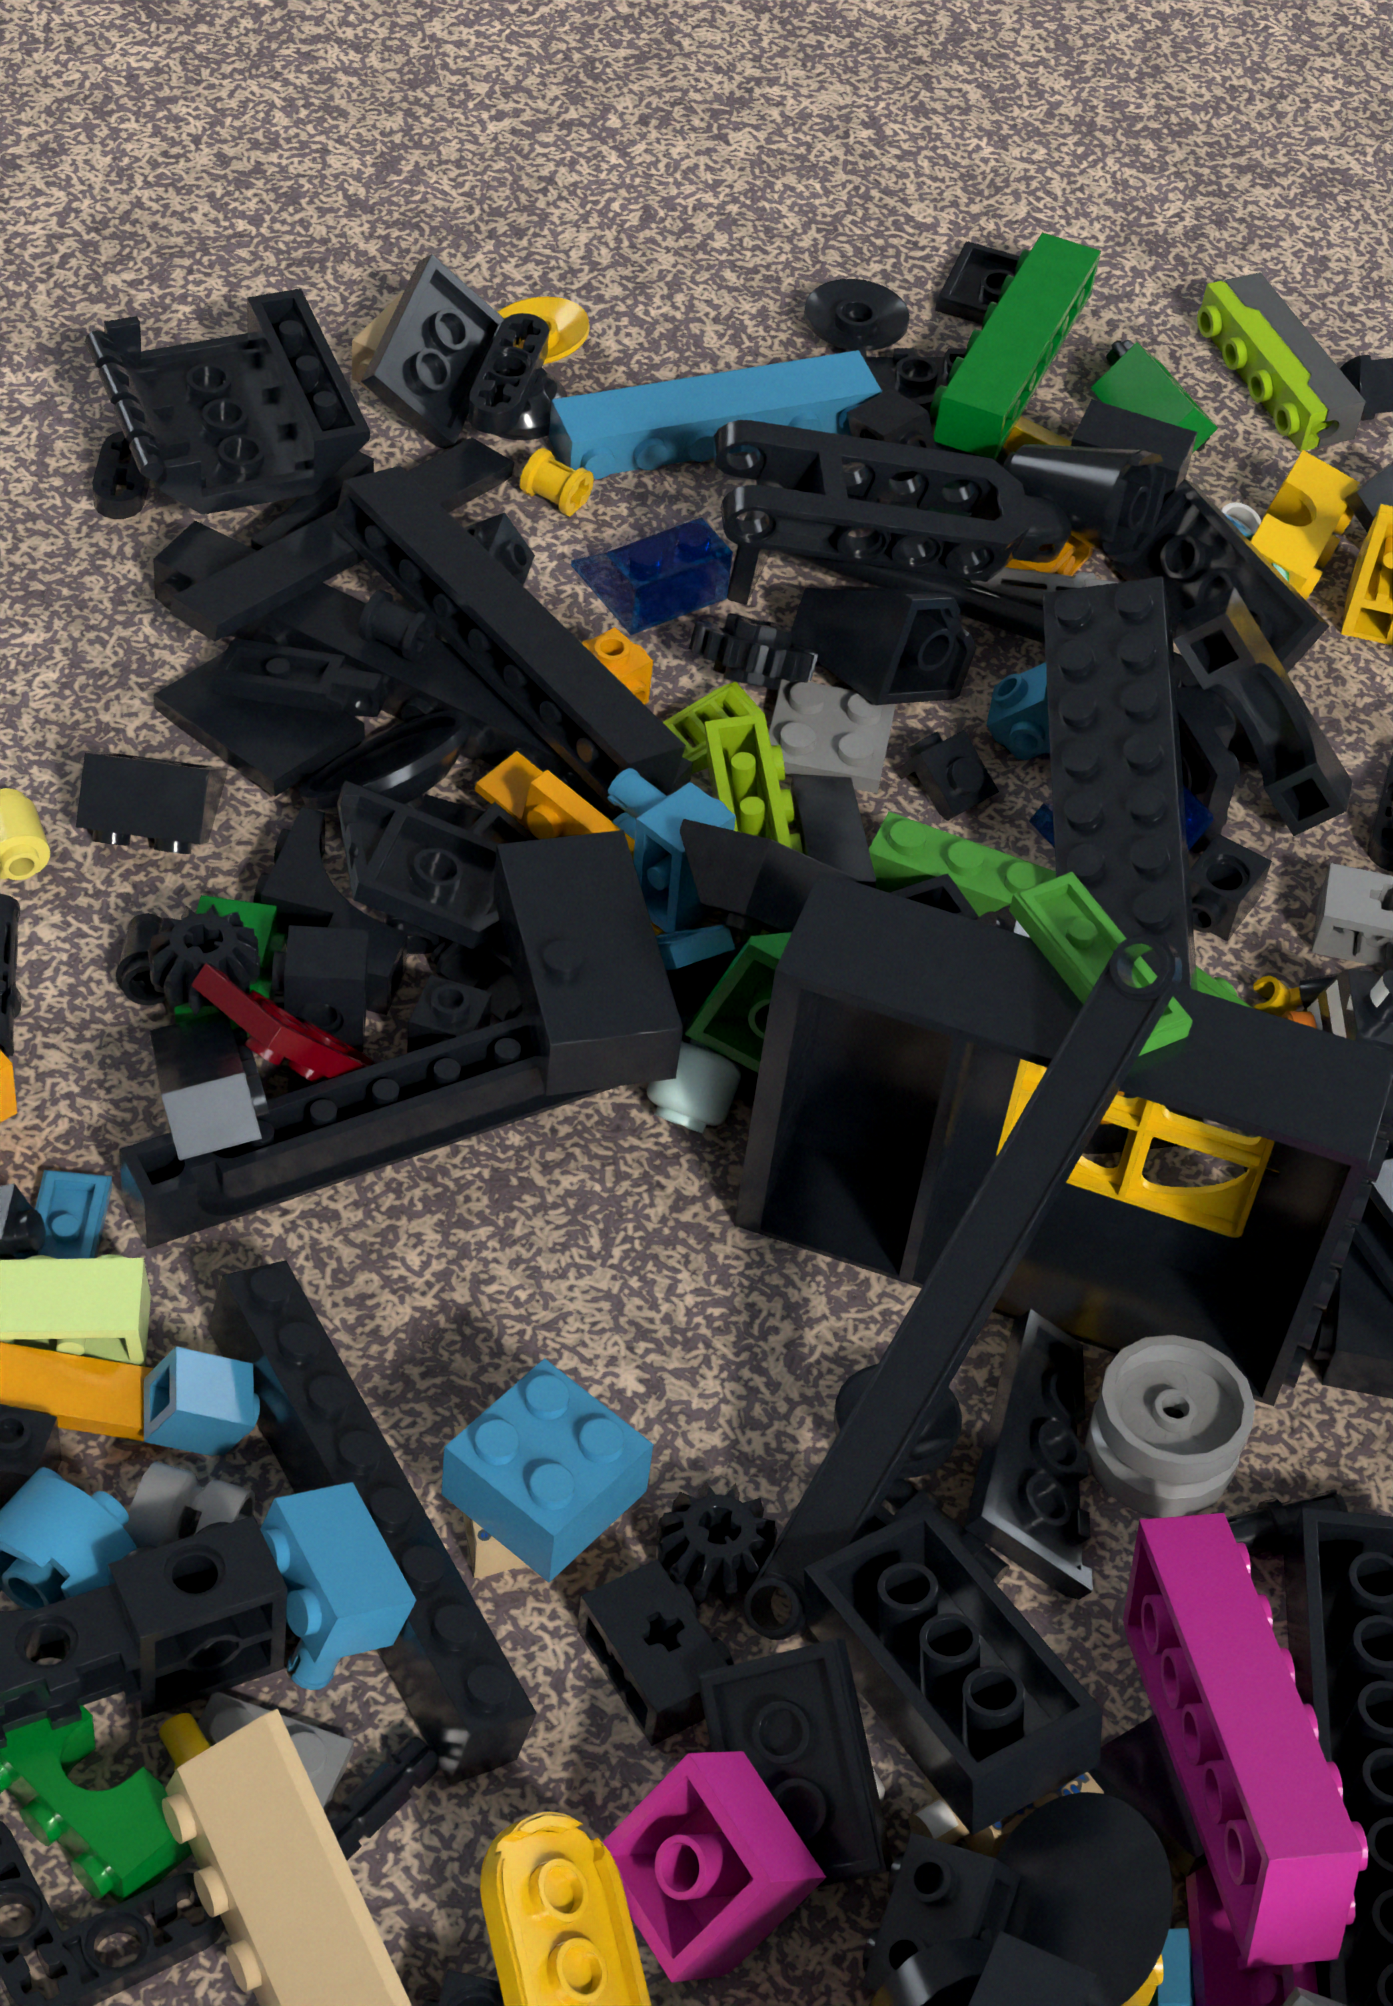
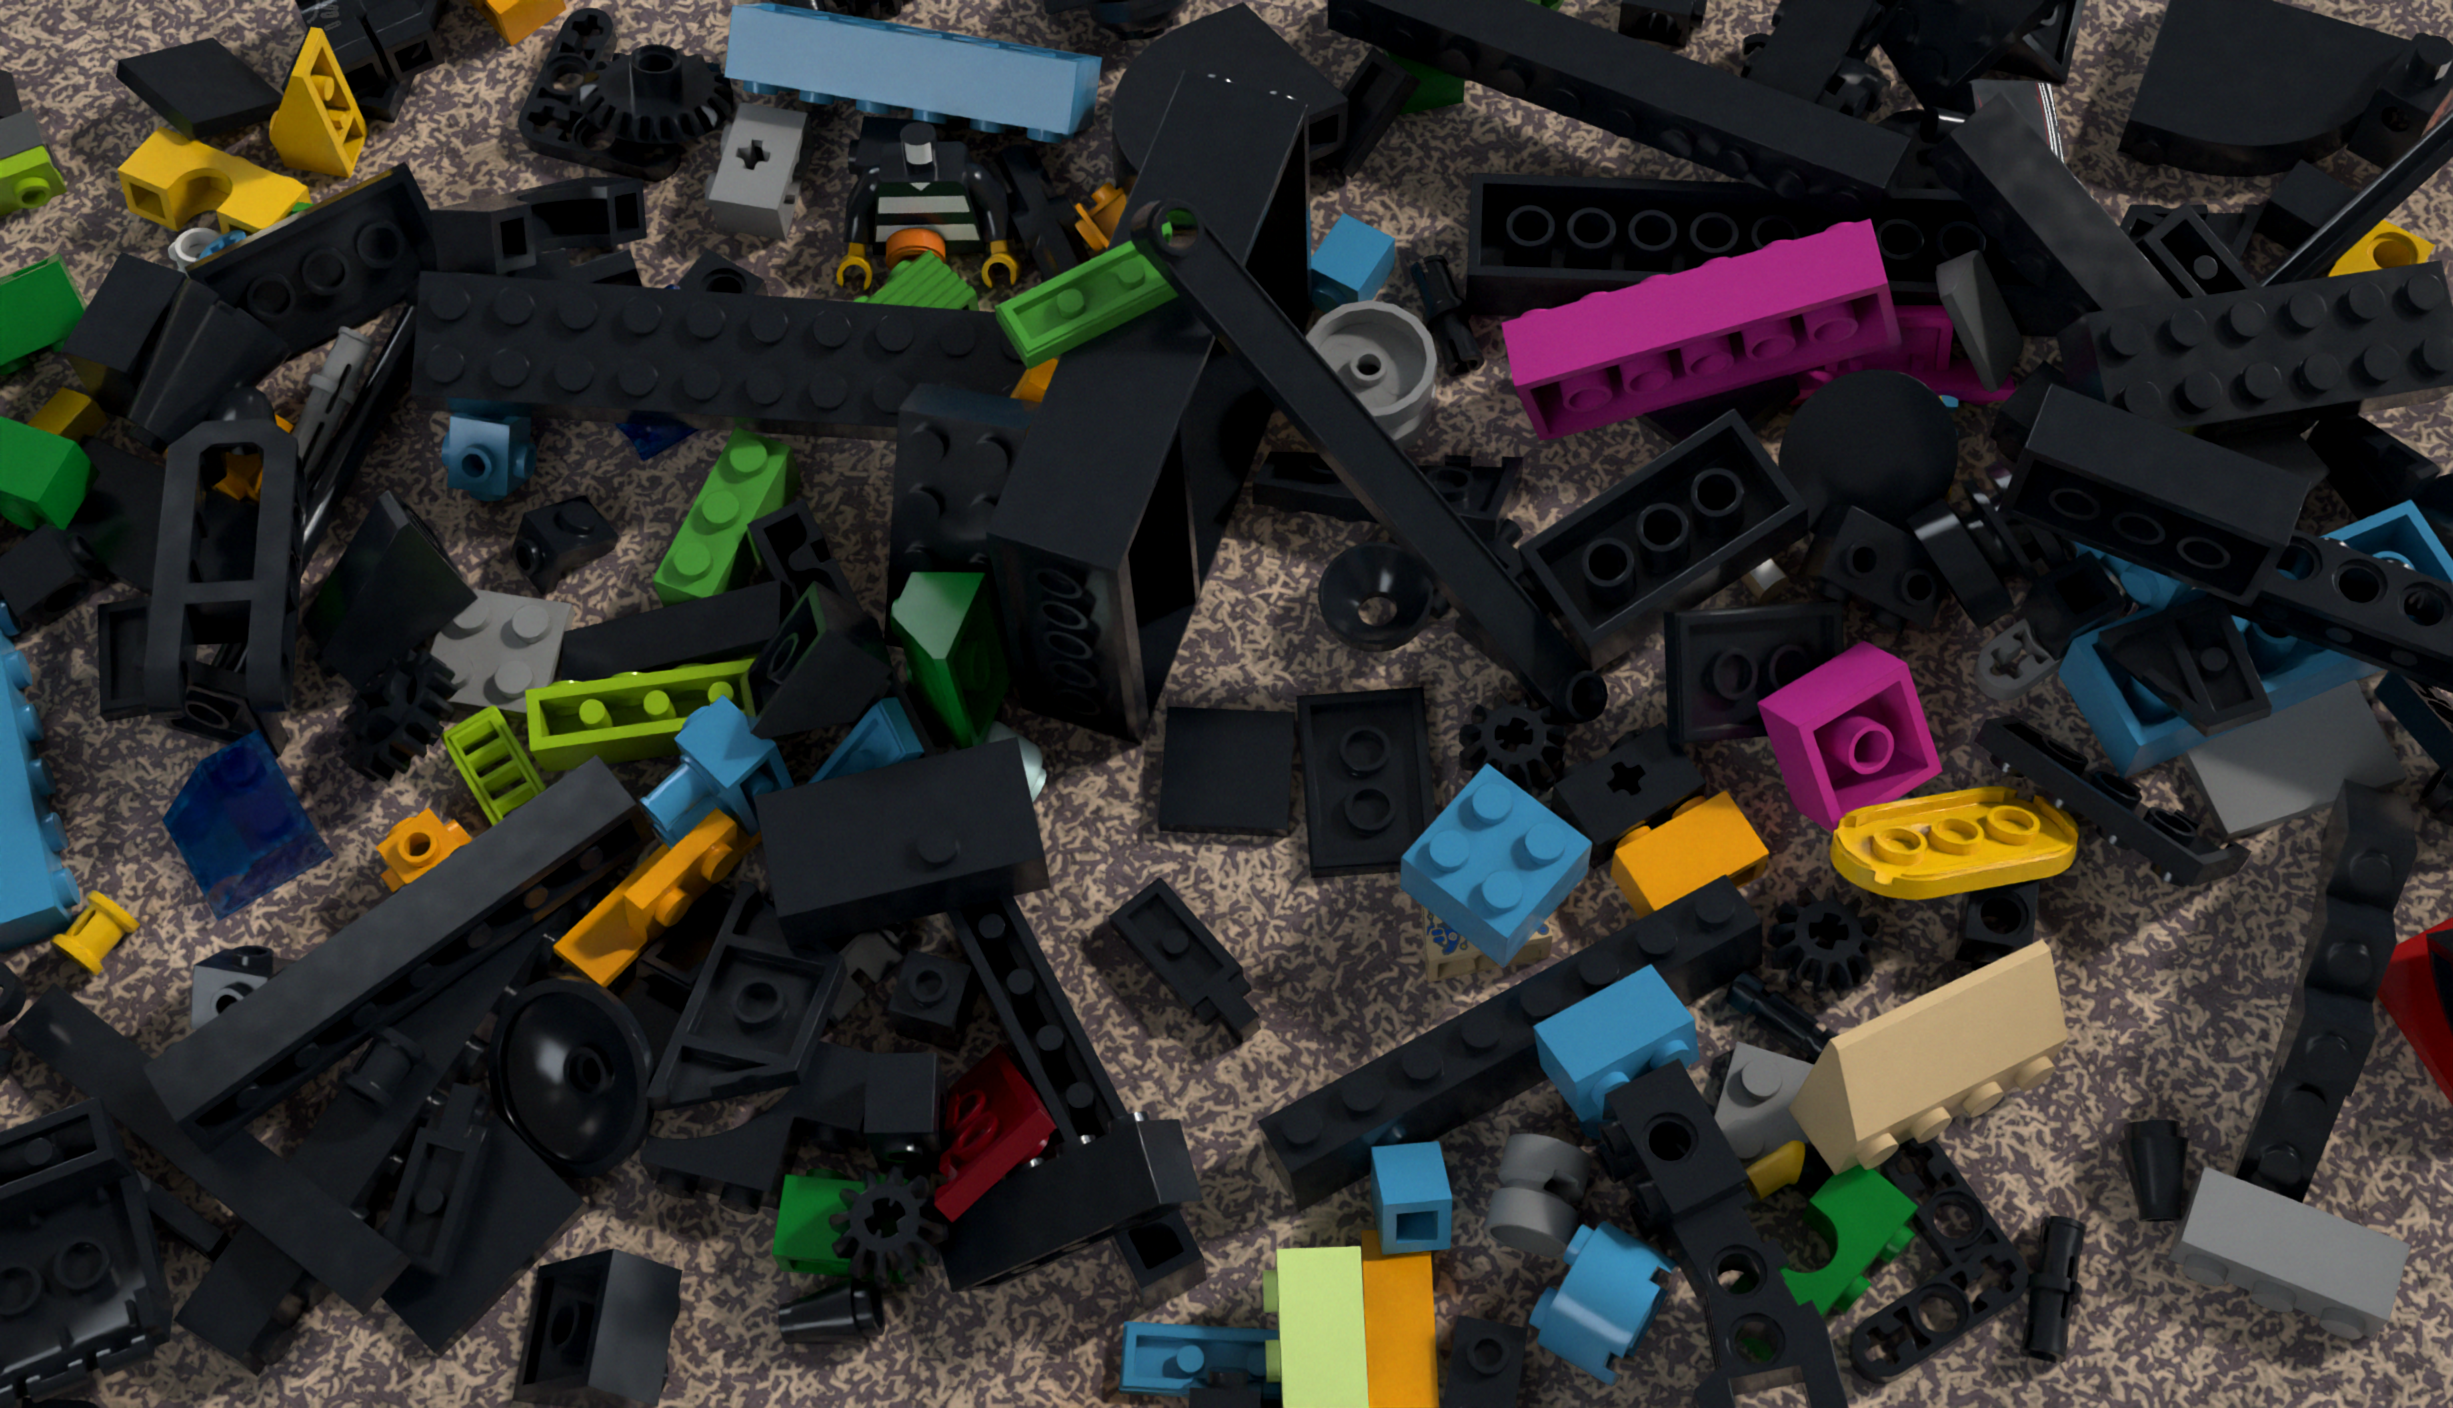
camera: 80 degrees left, 15 degrees up
(432, 1835) = (1798, 941): none -> black gear
(483, 1242) = (1187, 959): none -> black hinge
(583, 1719) = (1687, 853): none -> light orange brick
(699, 1292) = (1227, 771): none -> black tile
(701, 1411) = (1364, 778): none -> black tile
(1322, 1427) = (1350, 264): none -> dark azure brick

